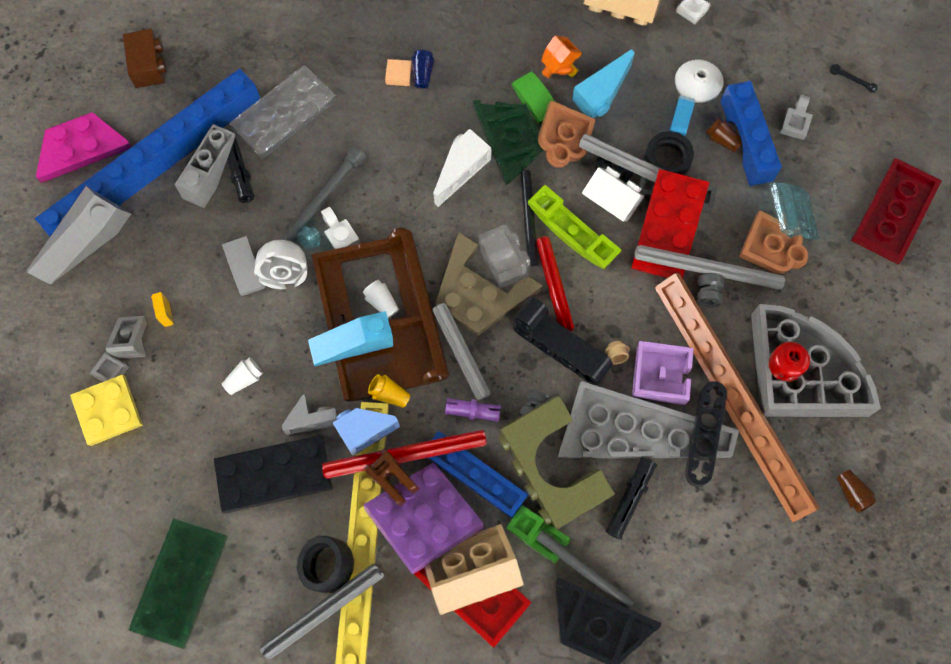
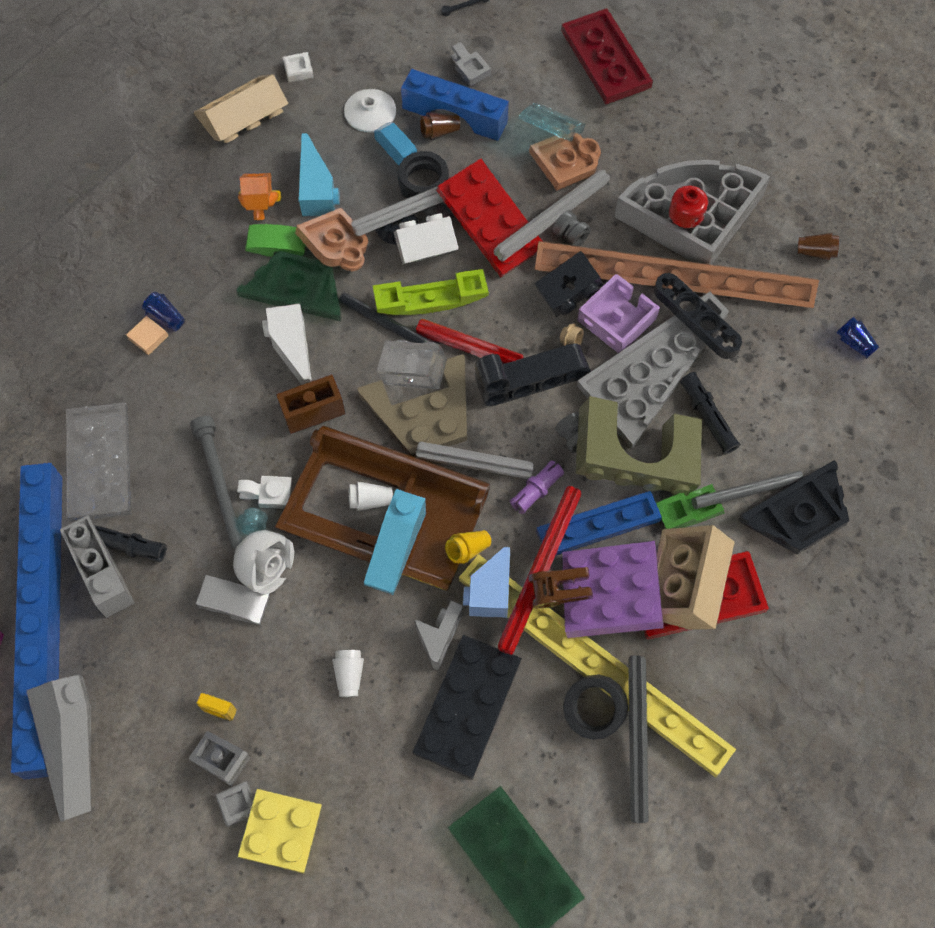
camera: 55 degrees left, 5 degrees down
(419, 210) = (311, 404): none -> reddish brown brick
(647, 310) = (575, 271): none -> black brick
(793, 576) = (858, 337): none -> clear blue cone

